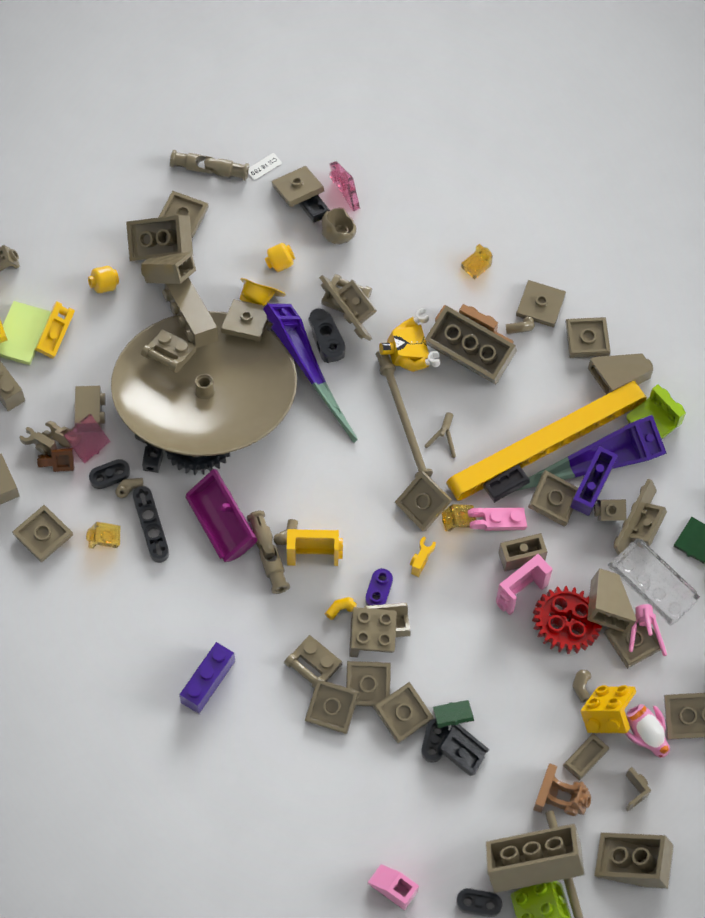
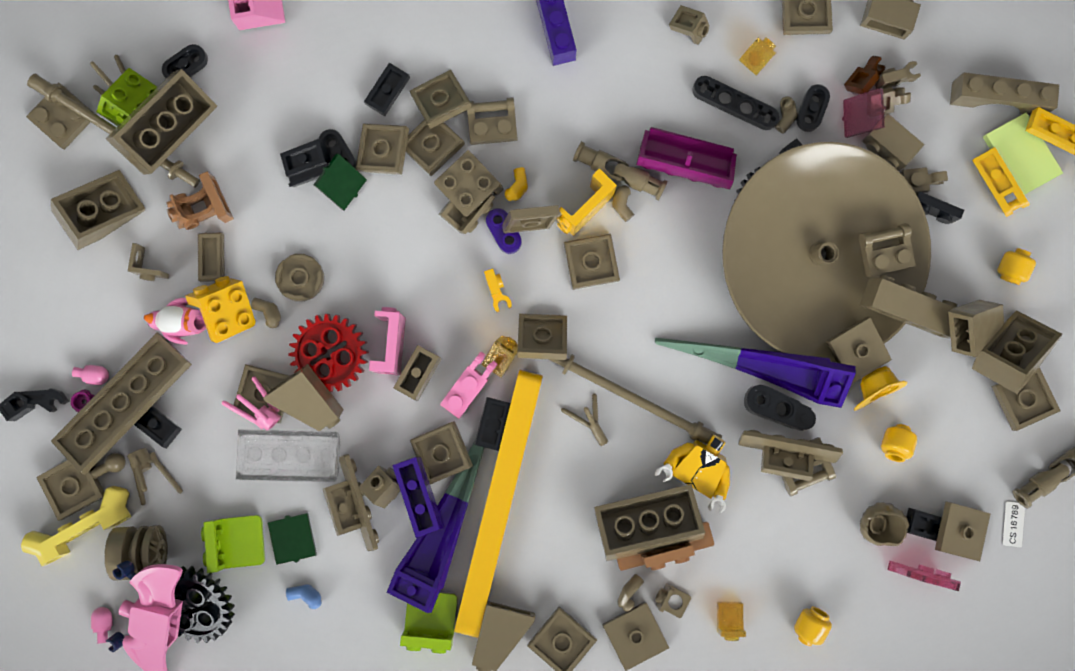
camera: 135 degrees right, 20 degrees up
(96, 376) = (921, 180): none -> dark tan plate
(107, 344) = (943, 211): none -> black plate
(123, 596) = (690, 23): none -> dark tan bracket
(345, 516) = (591, 261): none -> dark tan tile
(359, 566) = (530, 219): none -> dark tan plate
(360, 748) = (387, 89): none -> black plate
(435, 217) = (812, 626): none -> yellow head
(501, 303) = (663, 597): none -> dark tan bracket
(539, 687) = (299, 277): none -> dark tan tile

